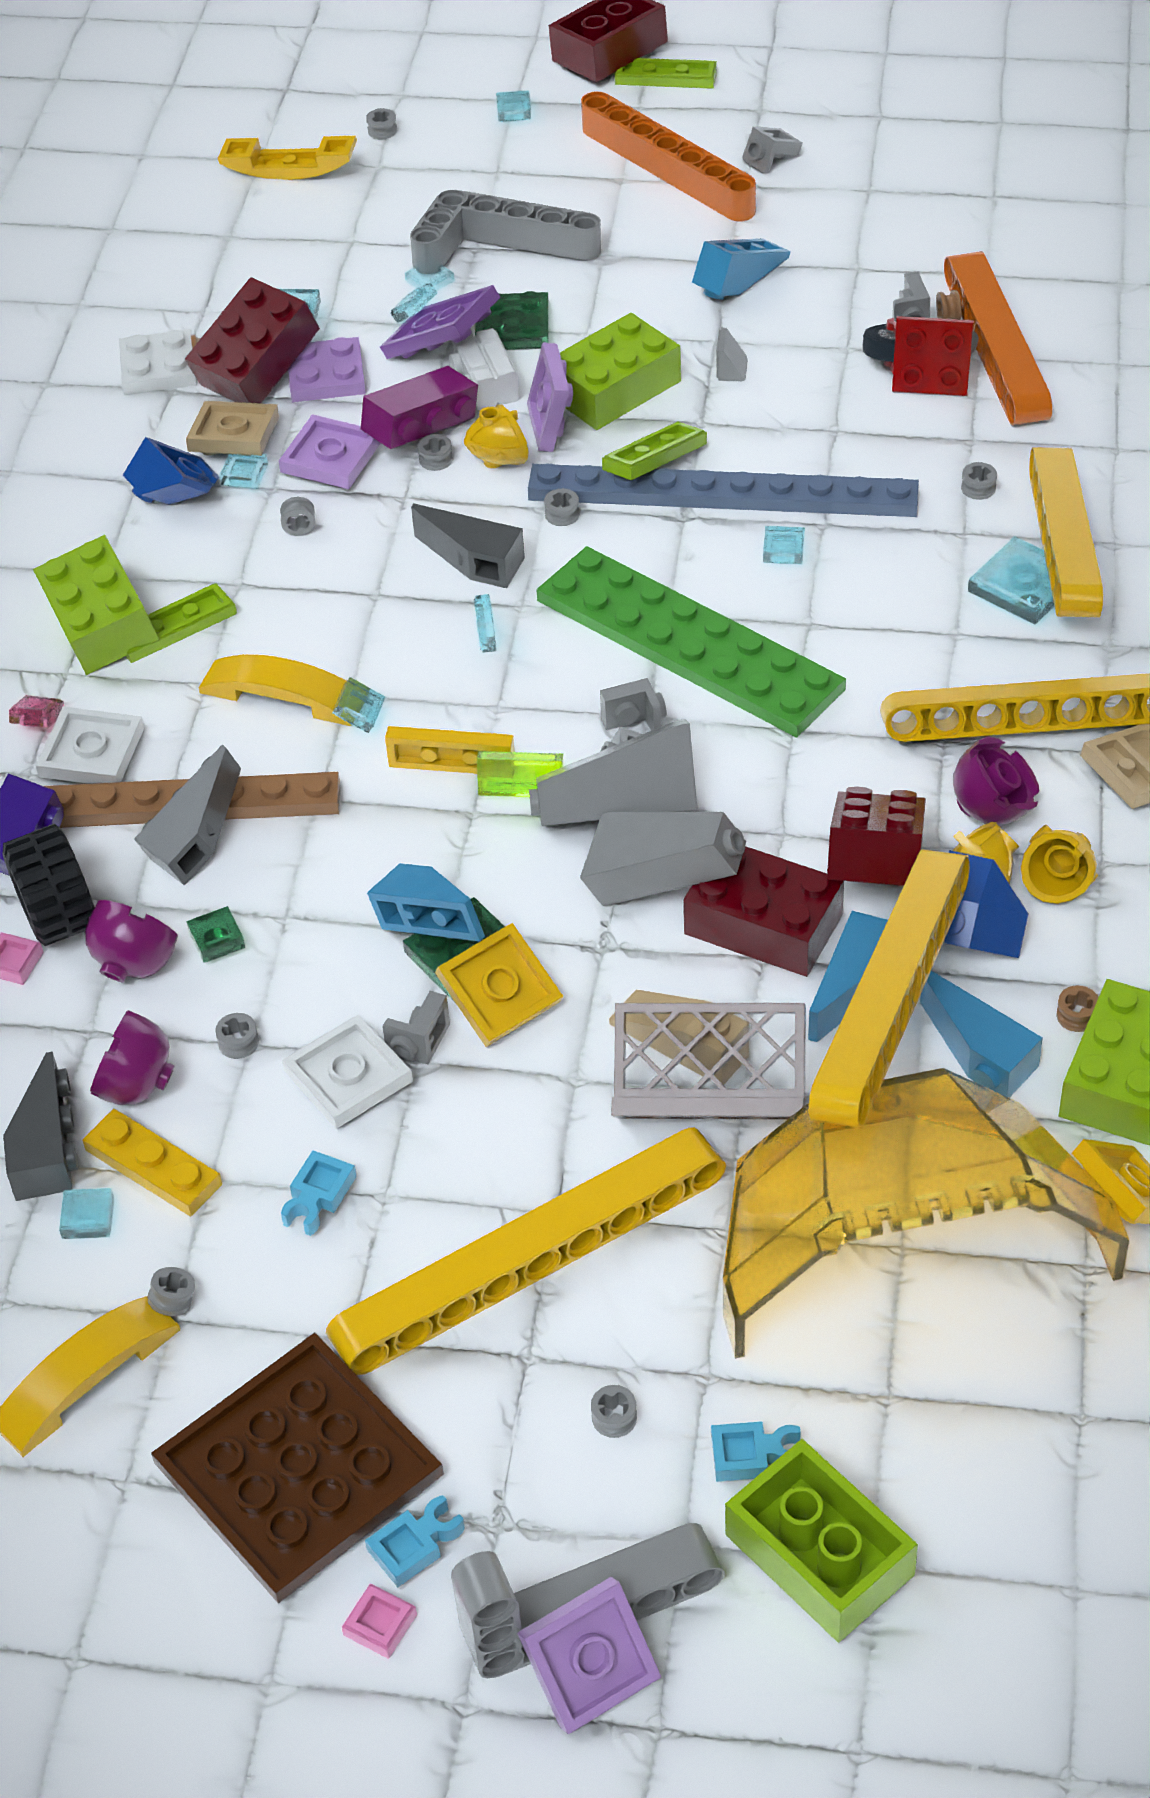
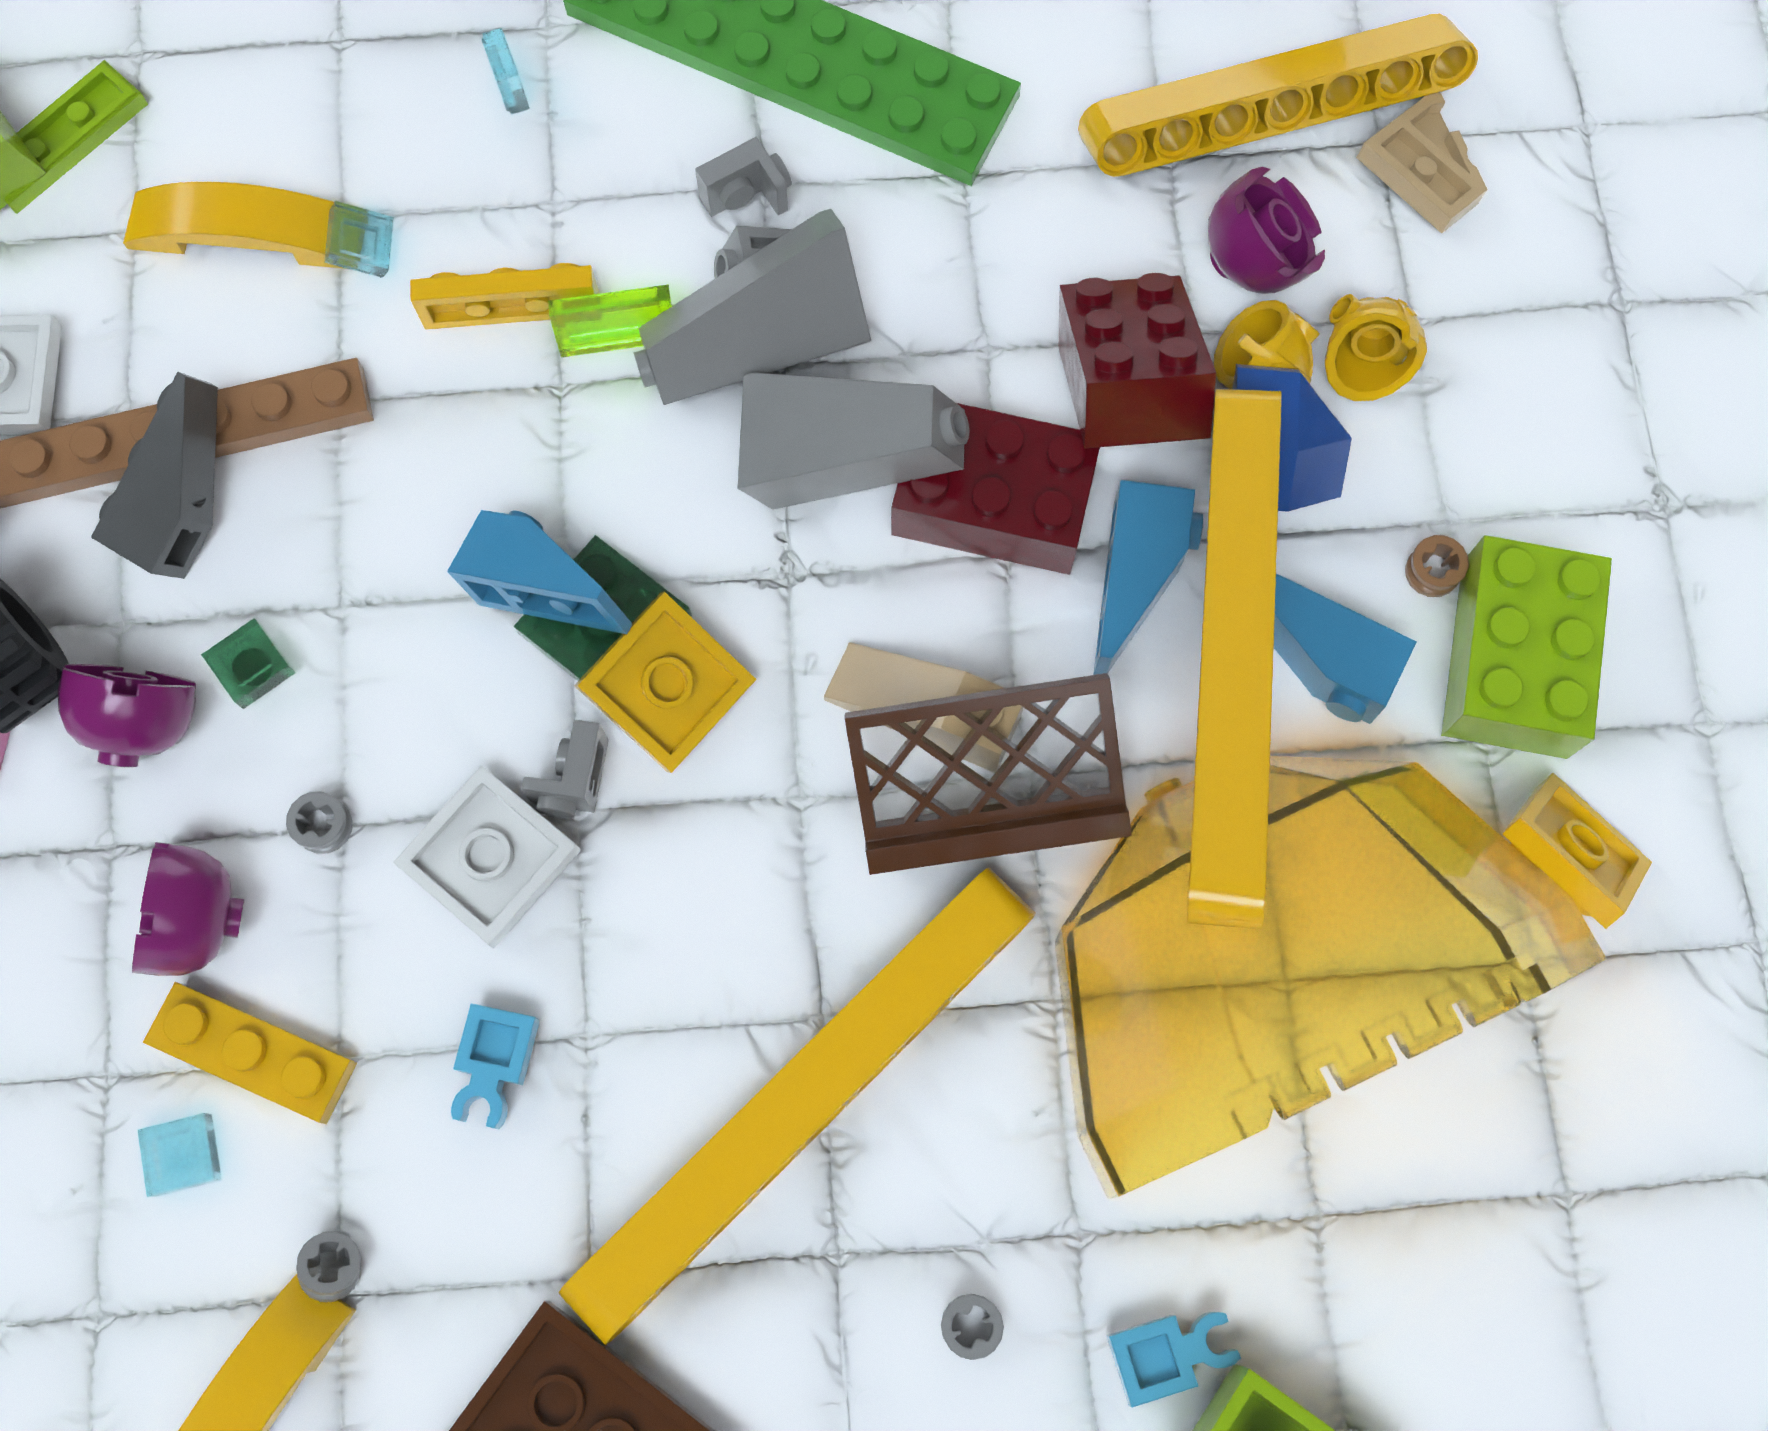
camera: 15 degrees left, 25 degrees up
(36, 1138) = (78, 1055): dark grey slope -> none

